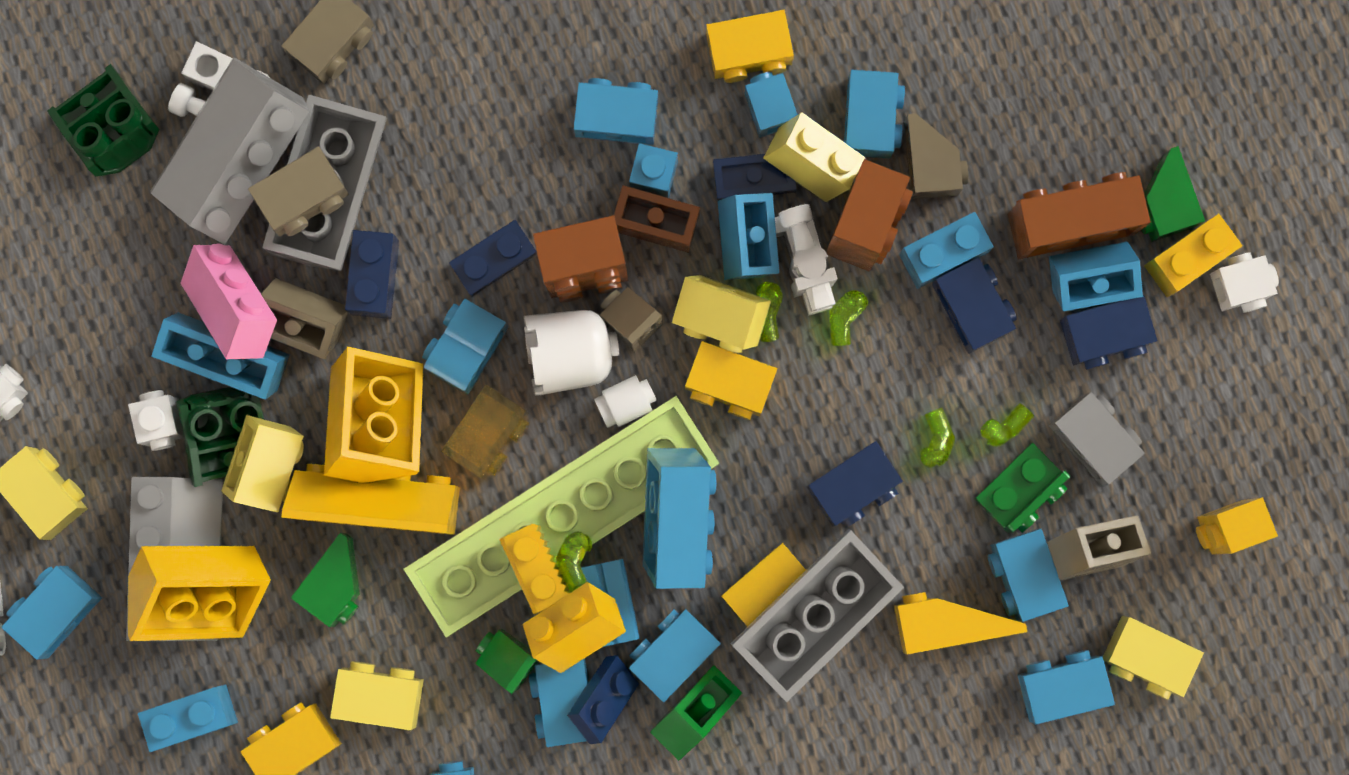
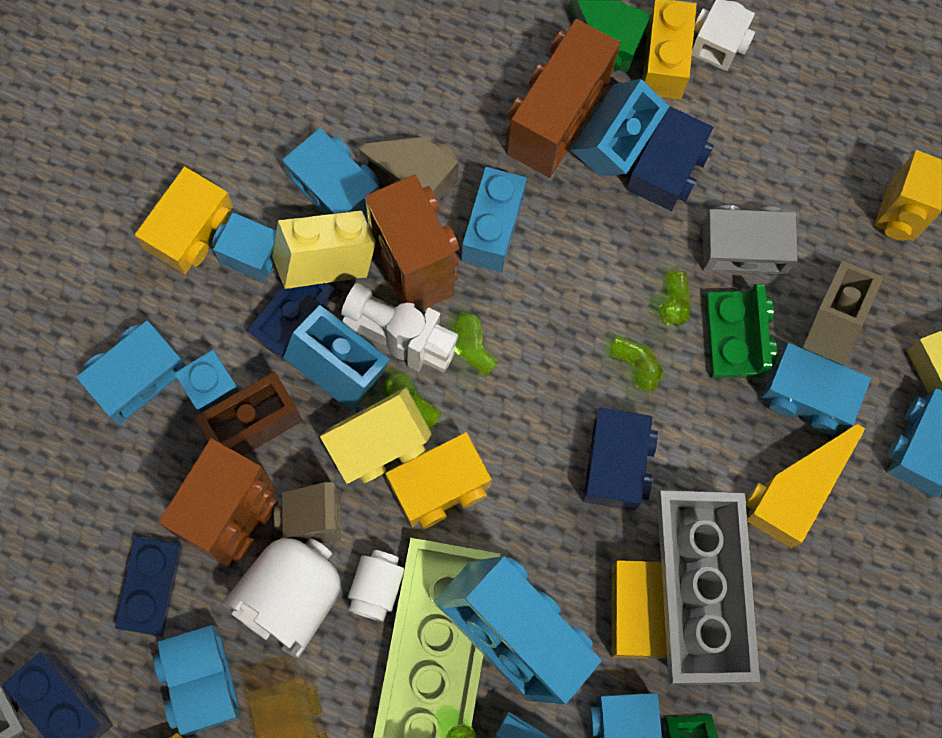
camera: 55 degrees left, 10 degrees down
(975, 304) = (557, 237): dark blue brick -> none

